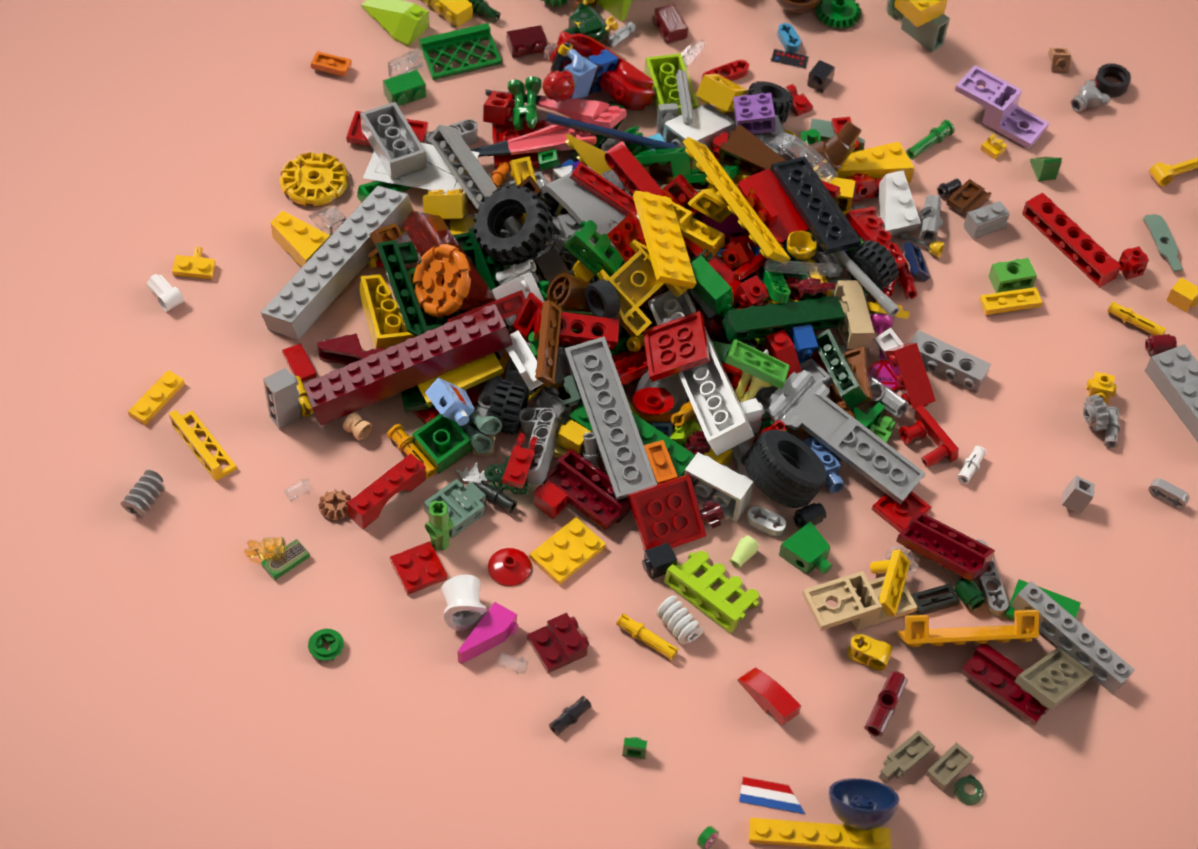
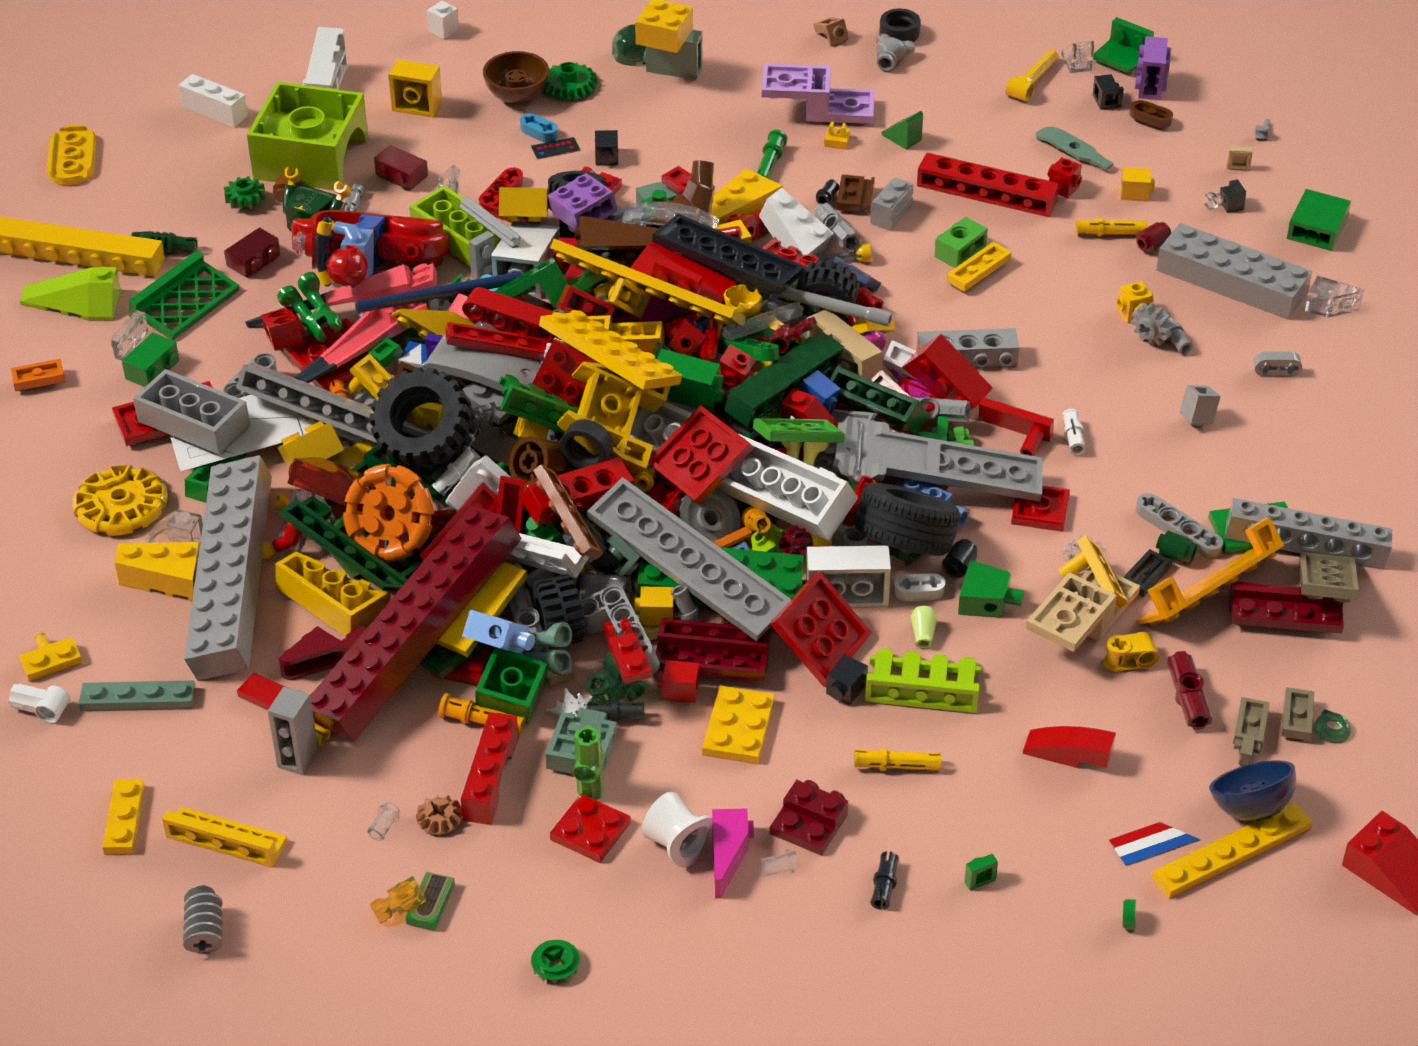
camera: 30 degrees left, 10 degrees down
(224, 320) = (137, 695): none -> sand green plate
(355, 425) = (397, 722): light nougat wheel -> none
(383, 234) = (269, 510): dark orange panel -> none
(509, 574) = (688, 774): red dish -> none
(653, 401) = (715, 524): red dish -> none
(660, 461) = (777, 575): orange plate -> none
(678, 622) = (918, 725): white piece -> none
(712, 514) = (863, 605): dark red gear -> none
(912, 432) = (989, 433): red bush -> none
(946, 546) = (1121, 513): dark red brick -> none

